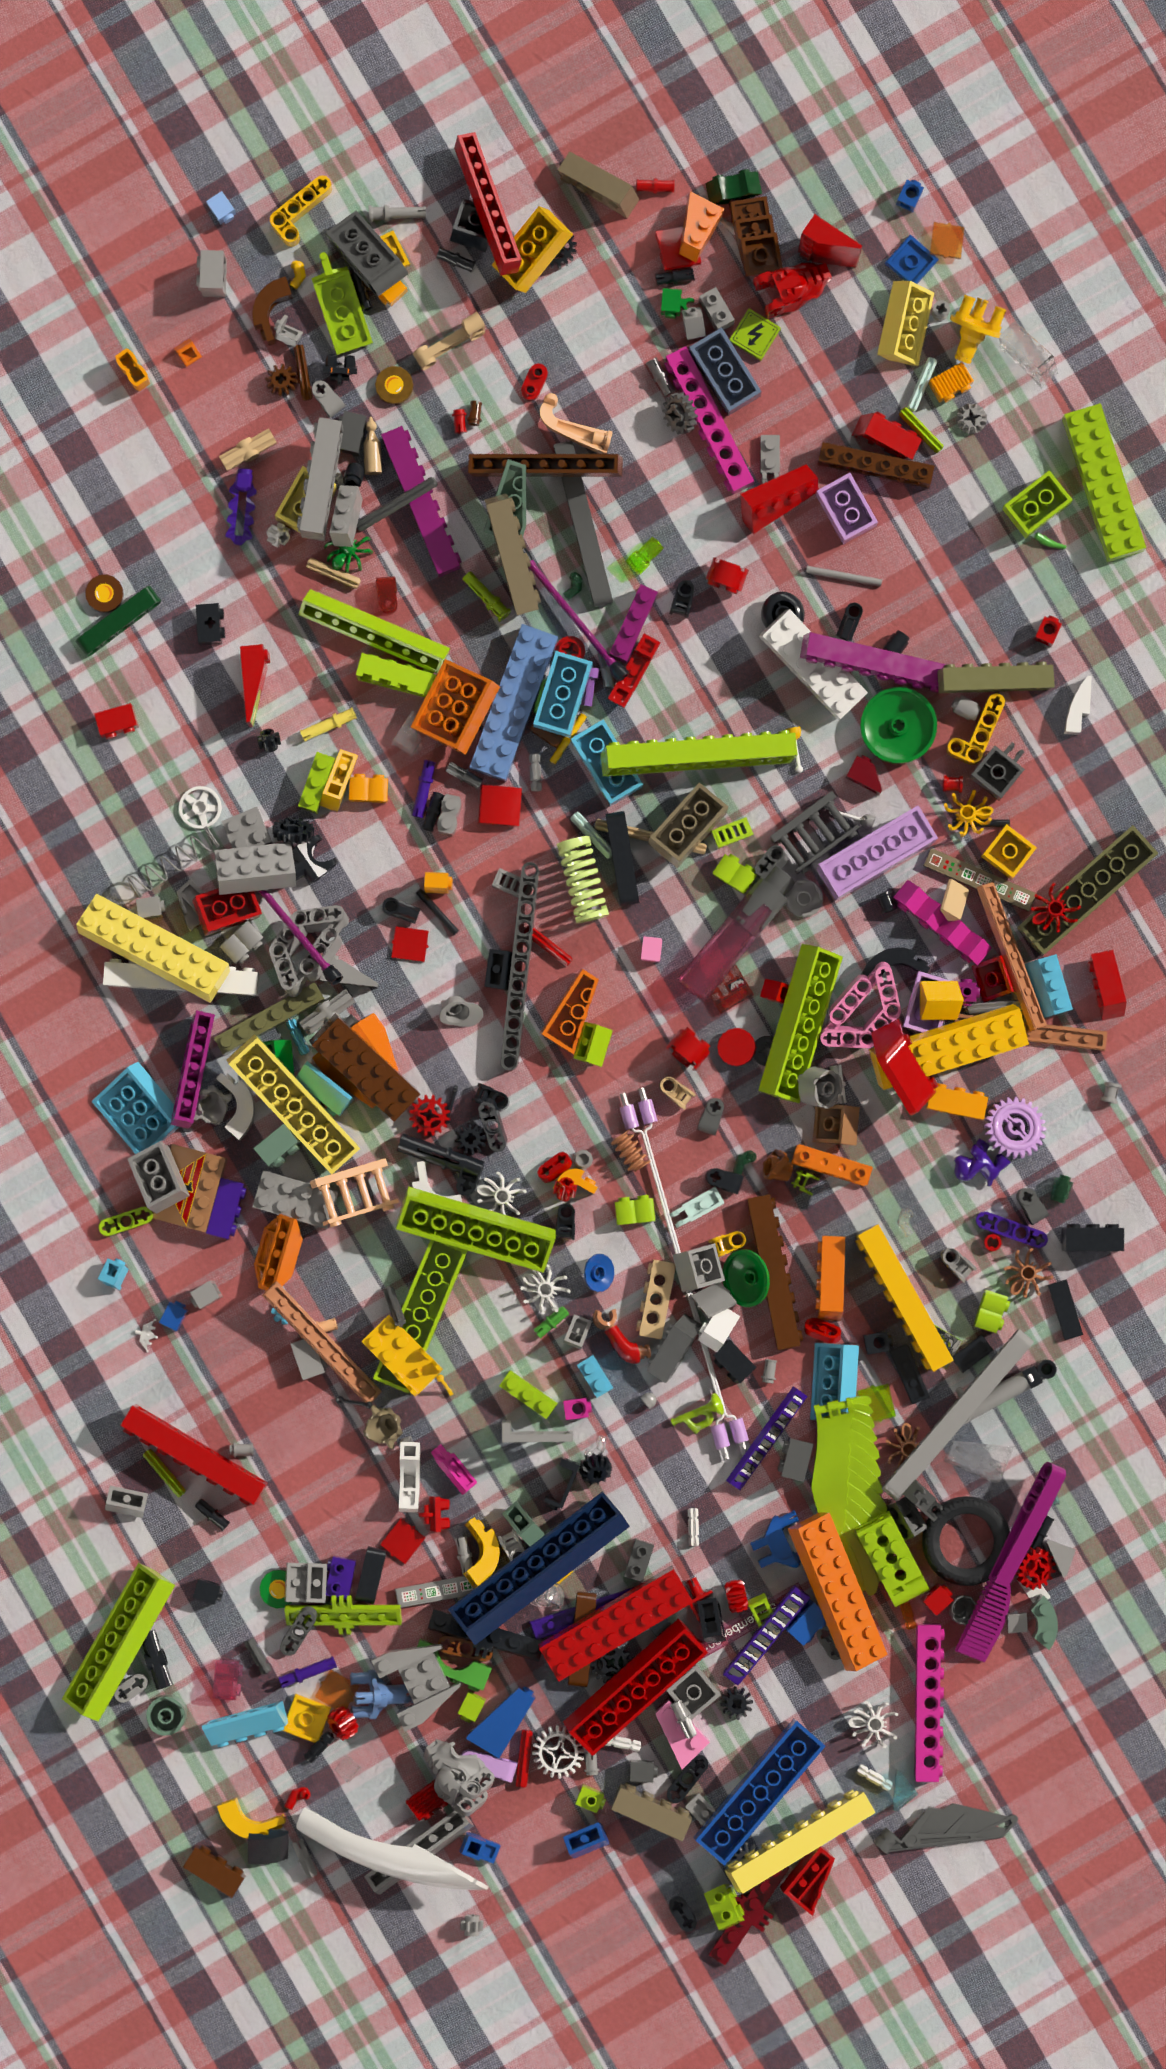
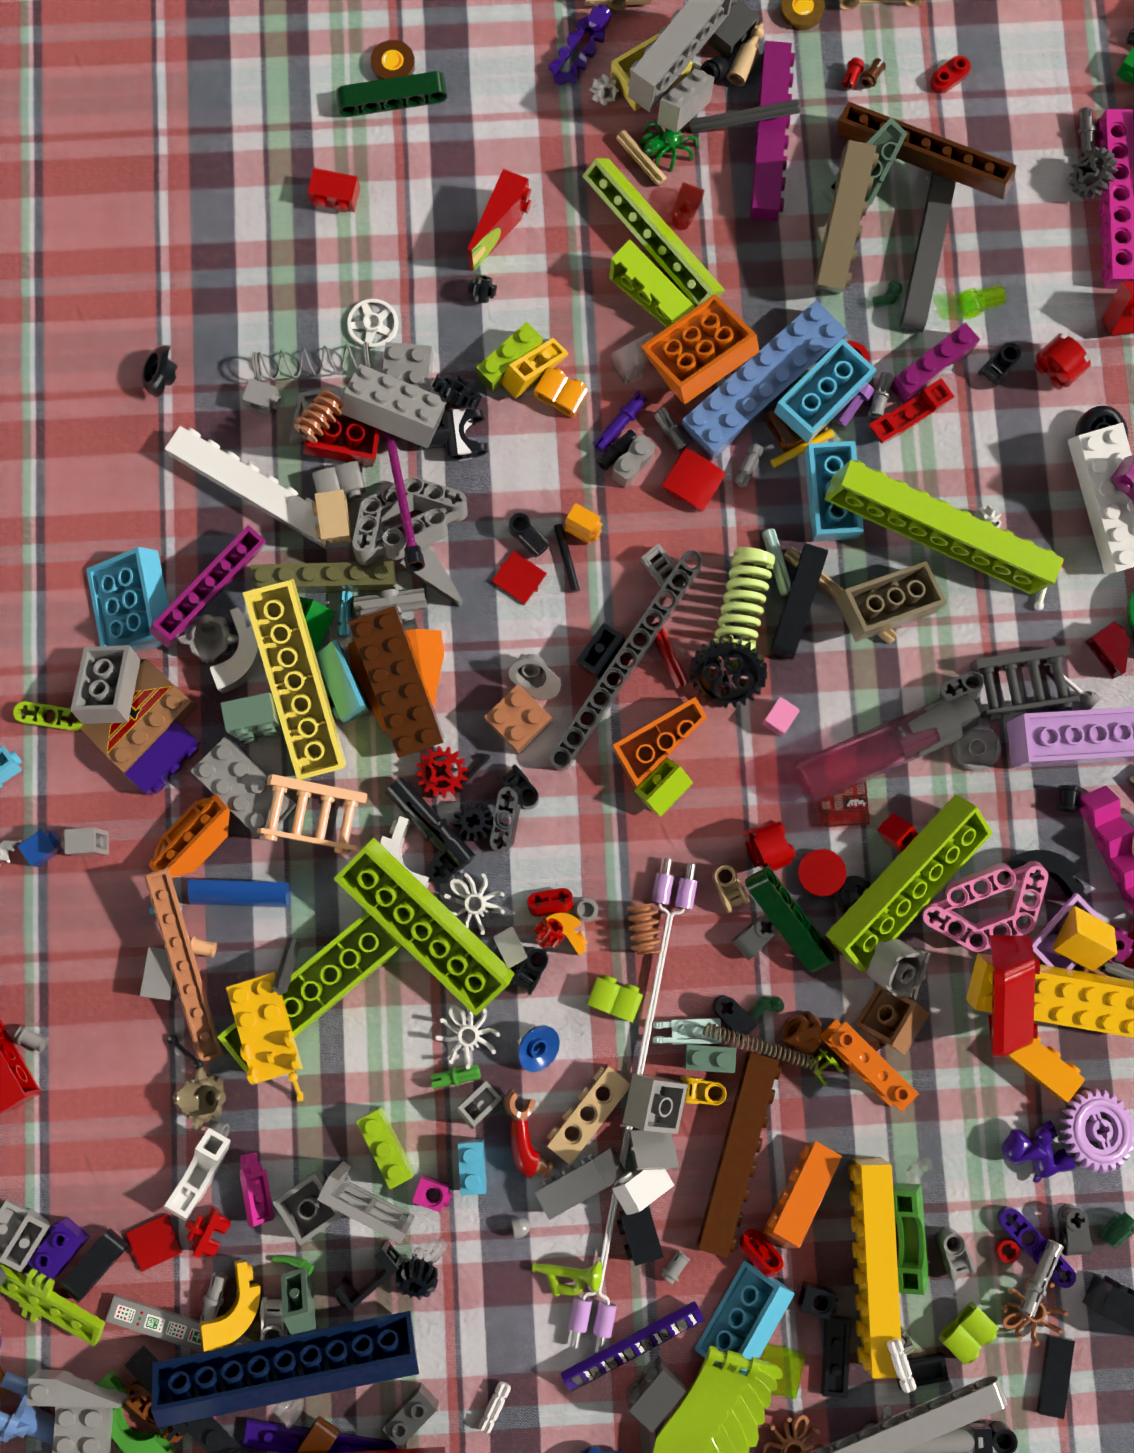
camera: 20 degrees right, 5 degrees down
(63, 928) = (158, 371): none -> black hat
(153, 948) = (239, 436): light yellow brick -> none
(204, 614) = (483, 143): black brick -> none
(208, 906) = (317, 415): none -> nougat piece
(255, 973) = (332, 517): none -> tan hinge
(332, 1275) = (238, 893): none -> blue brick
(336, 720) = (554, 305): light yellow pin -> none
(464, 1049) = (518, 719): none -> nougat brick
(492, 602) = (794, 268): lime pin -> none
(497, 1460) = (303, 1211): none -> light grey brick
(505, 1504) = (294, 1262): none -> bright green helmet
(542, 1213) = (510, 947): none -> white sticker
(588, 437) = (961, 130): light nougat animal -> none
(597, 938) = (747, 664): none -> black gear
(617, 670) = (894, 399): magenta hose -> none
(715, 833) = (913, 641): lime slope -> none
(721, 1217) = (709, 1058): none -> sand green brick
(728, 1093) = (789, 919): none -> dark green beam
(729, 725) = (989, 514): none -> white gear
(734, 873) = (914, 682): lime brick -> none
(746, 1277) = (694, 1143): green dish -> none
(752, 1189) = (761, 1046): none -> dark tan piece
(928, 1282) = (912, 1242): none -> bright green arch
(947, 1352) = (901, 1365): none -> white axle
(1020, 1248) = (1040, 1280): none -> light grey pin

